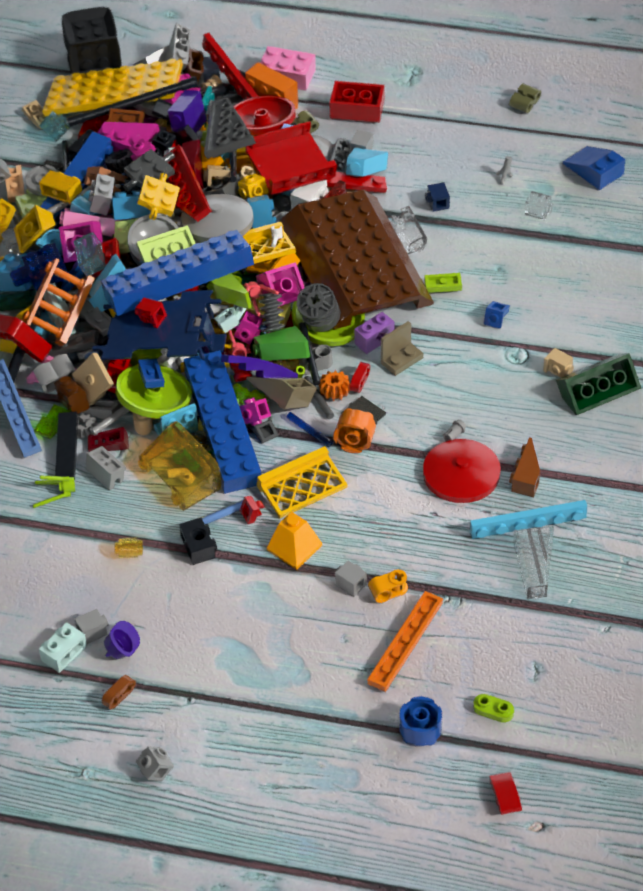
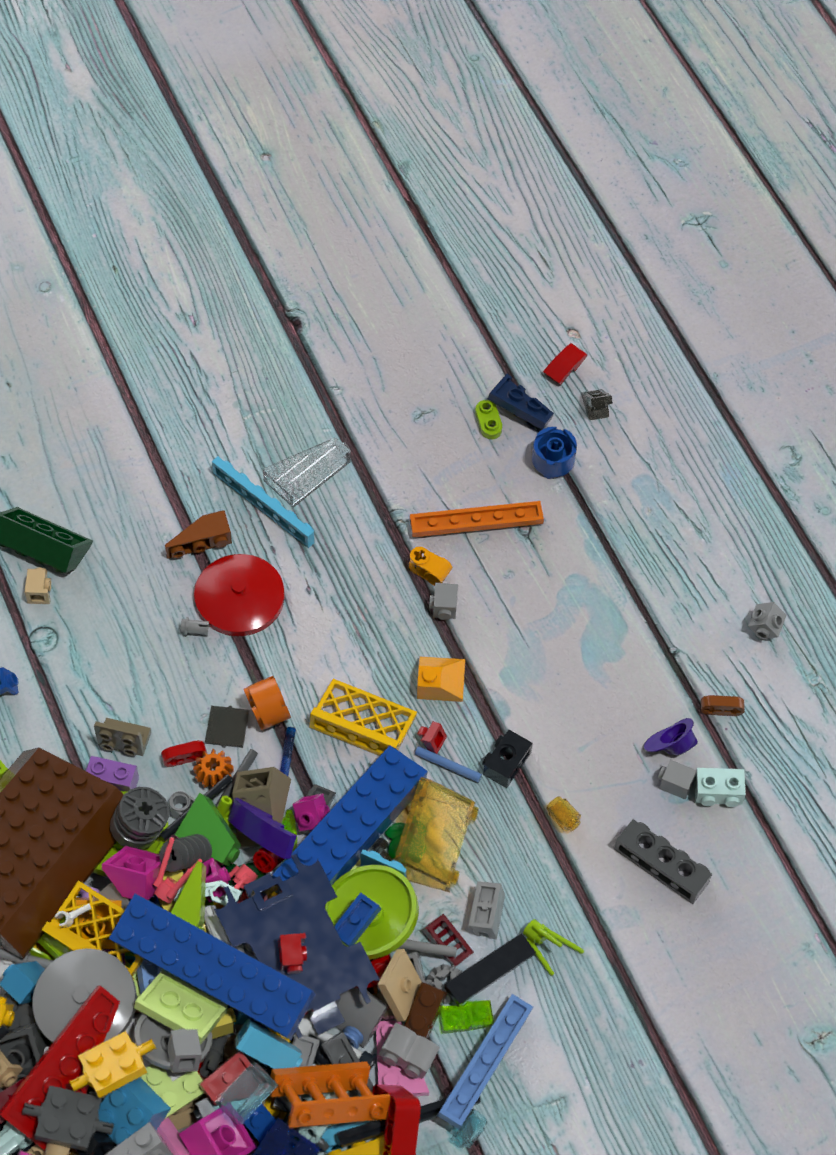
camera: 130 degrees left, 10 degrees up
(44, 580) = (668, 873): none -> dark grey brick
(136, 228) = (184, 1050): none -> light grey brick
(448, 786) = (596, 403): none -> clear smoke slope
(491, 733) = (516, 401): none -> dark blue wing

